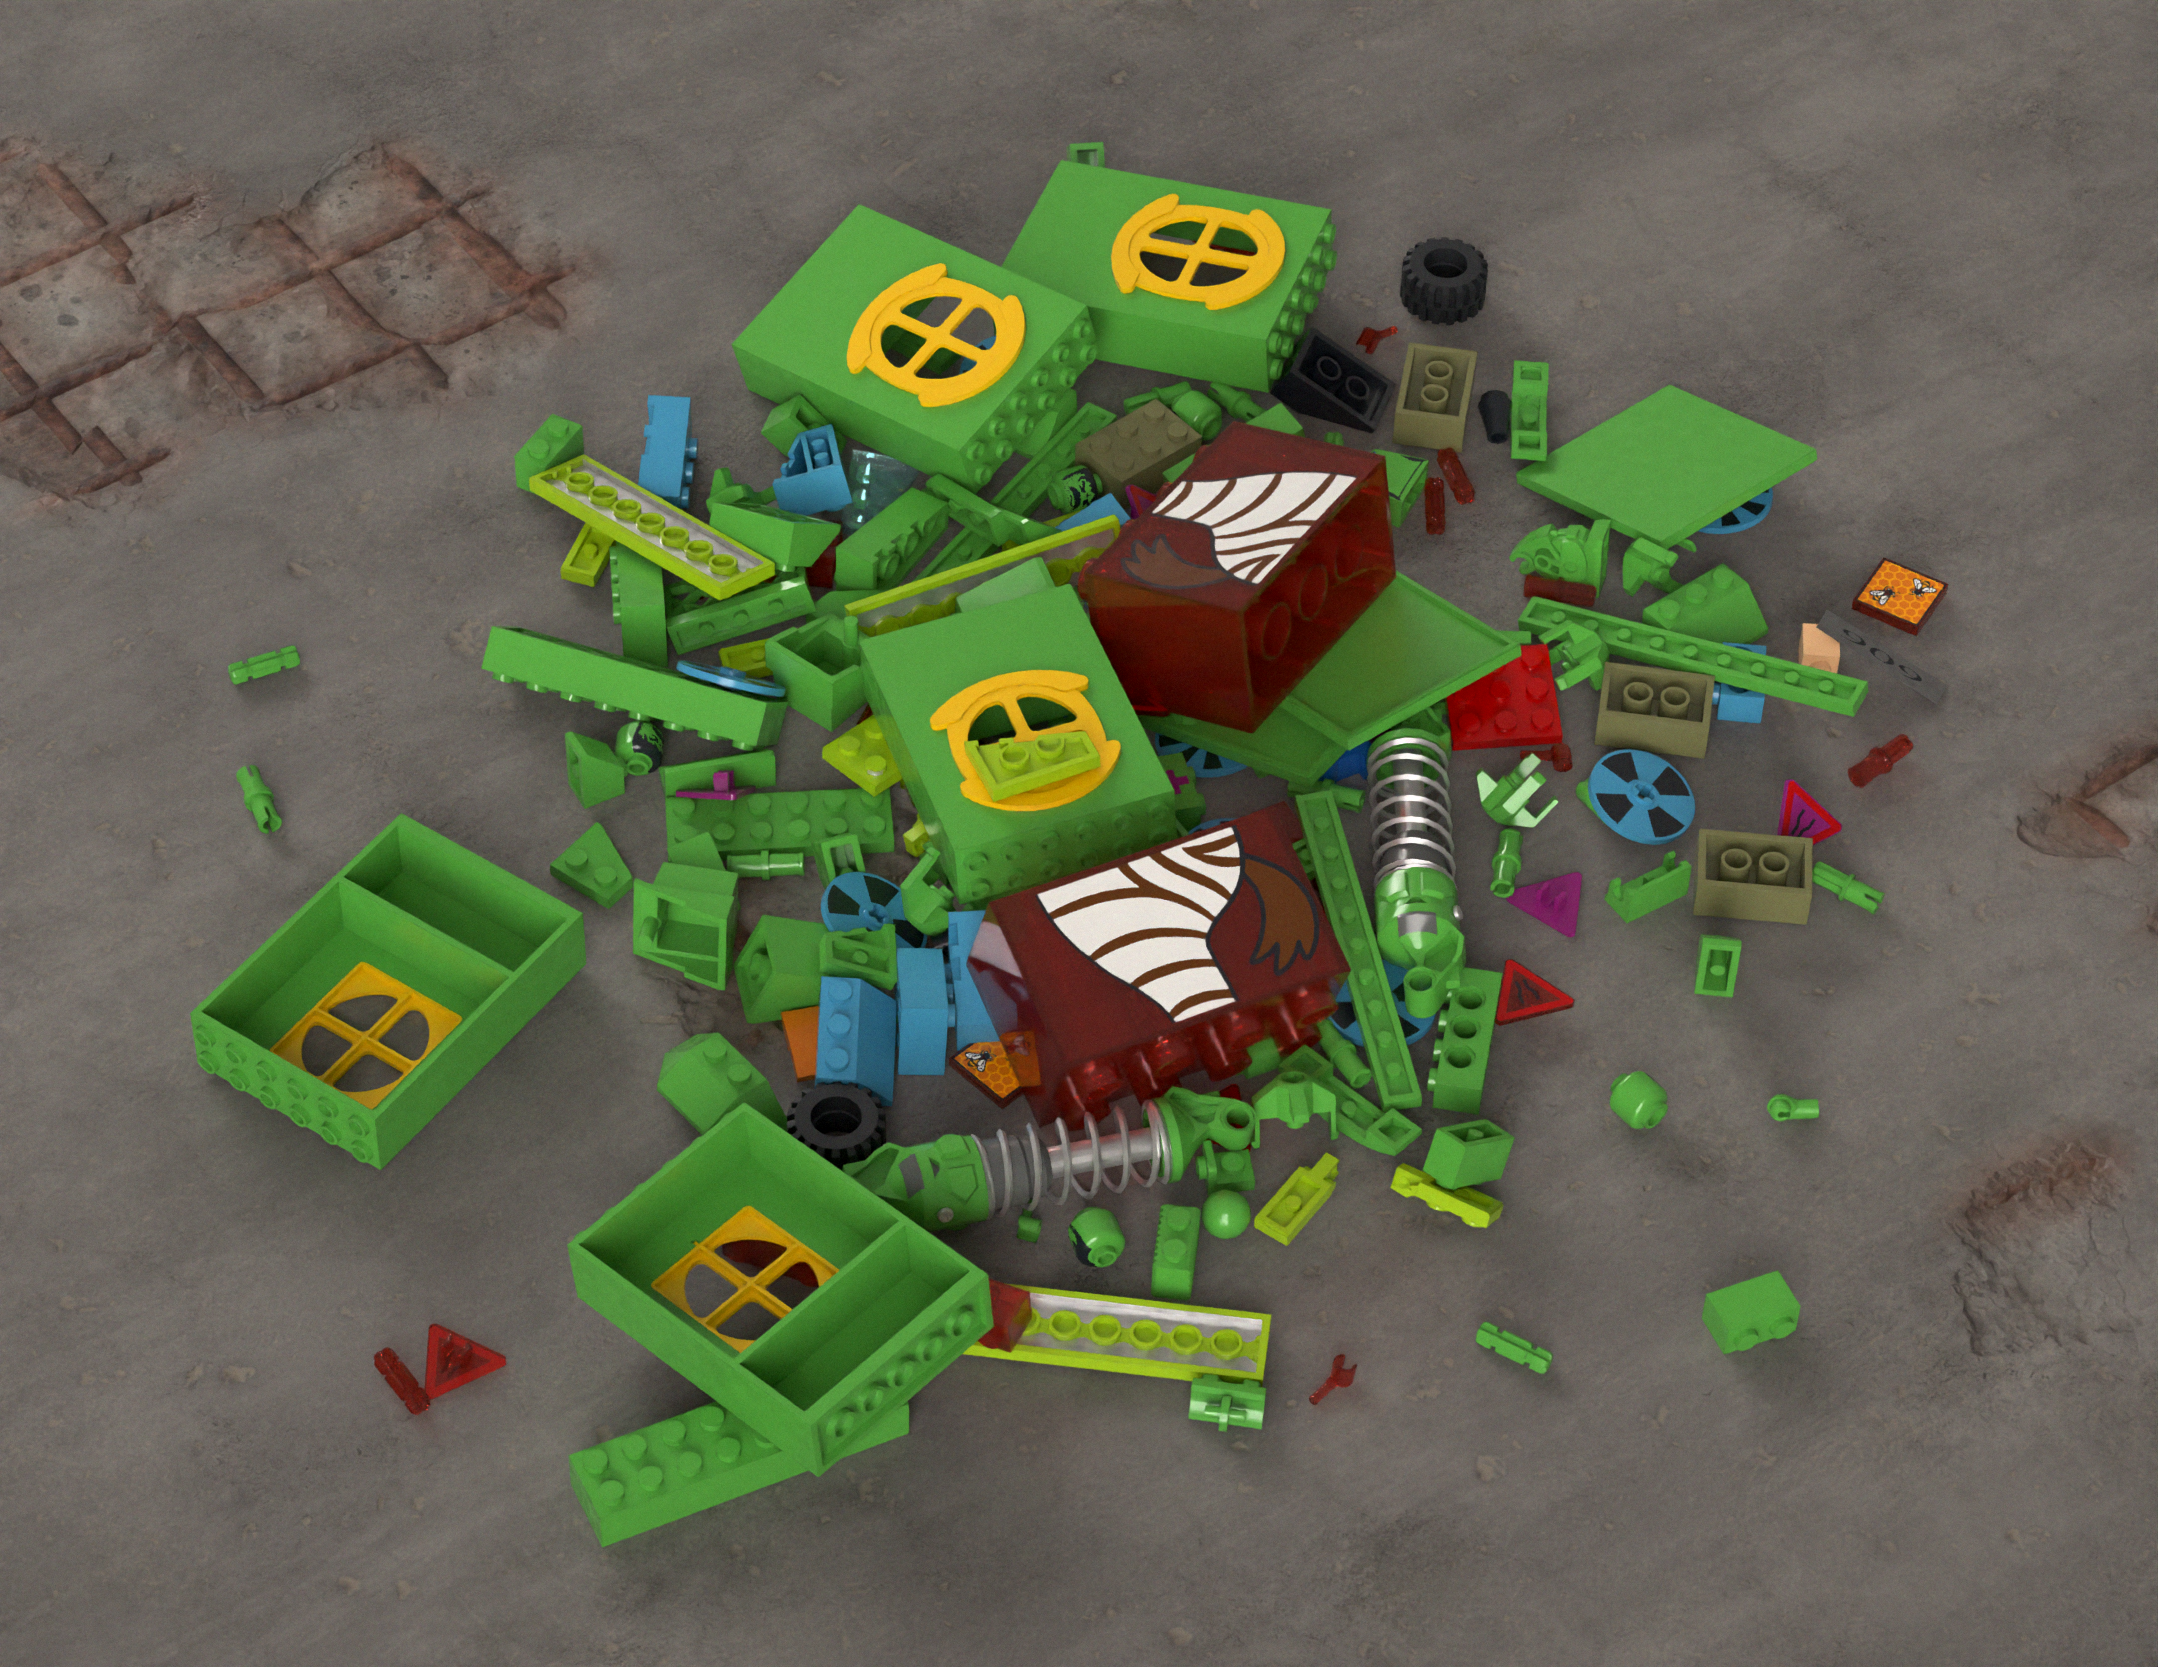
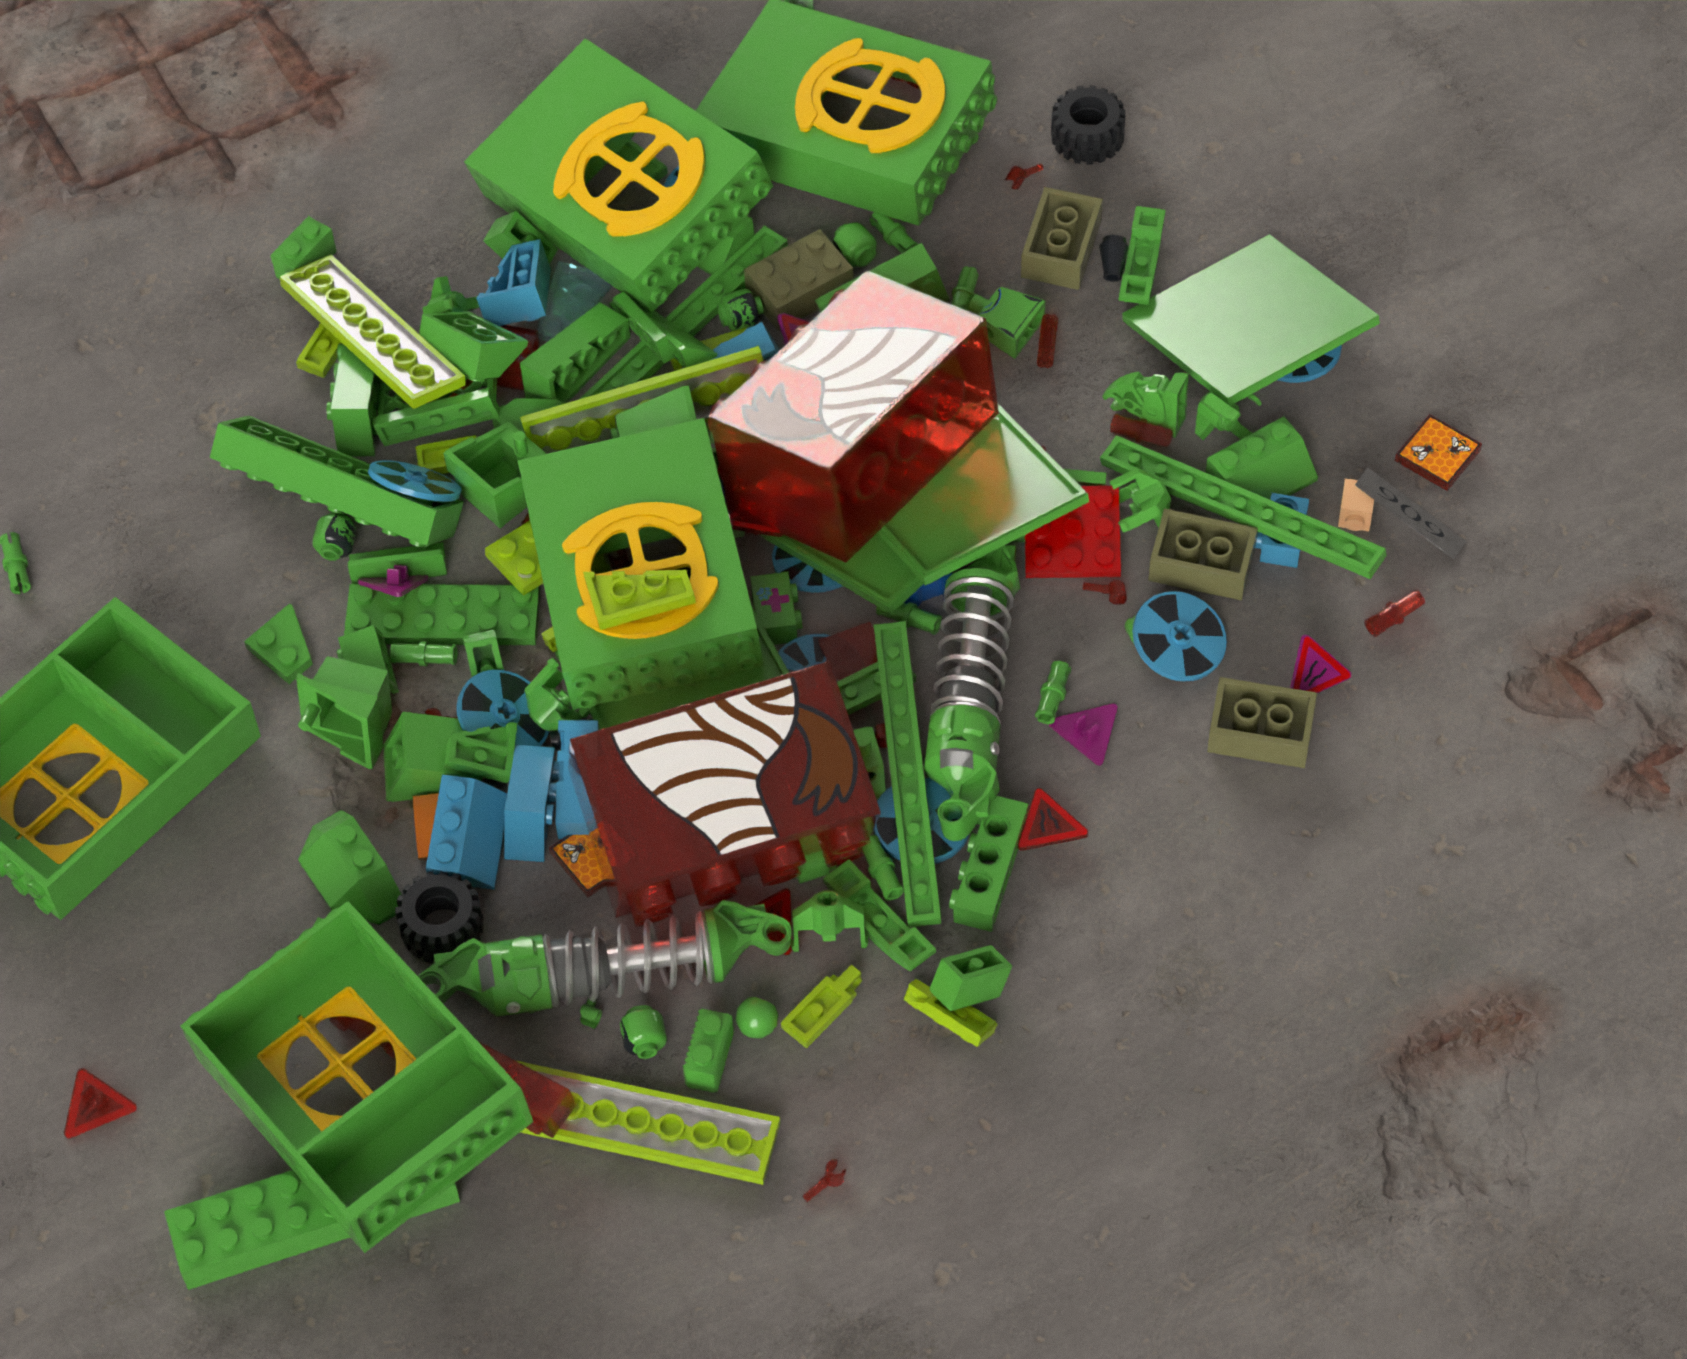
camera: 10 degrees right, 10 degrees up
(263, 664) = (39, 436): bright green axle -> none
(401, 1381) = (46, 1121): clear red axle -> none
(593, 770) = (292, 555): bright green slope -> none
(669, 450) = (401, 260): dark azure wedge -> none
(1164, 395) = (826, 224): bright green axle -> none
(1225, 1169) = (764, 972): bright green bracket -> none
(1227, 1402) = (729, 1199): bright green hips -> none
(1332, 384) = (977, 219): black slope -> none
(1456, 476) = (1070, 312): clear red axle -> none
(1507, 797) = (1062, 632): bright green piece -> none
(1514, 1347) = (984, 1162): bright green axle -> none
(1638, 1100) = (1128, 932): bright green head -> none
(1649, 890) = (1172, 726): bright green hinge -> none
(1717, 965) = (1217, 804): bright green slope -> none
(1751, 1312) = (1193, 1146): bright green brick -> none
(1785, 1107) = (1253, 947): bright green arm -> none
(1846, 887) = (1344, 735): bright green axle -> none

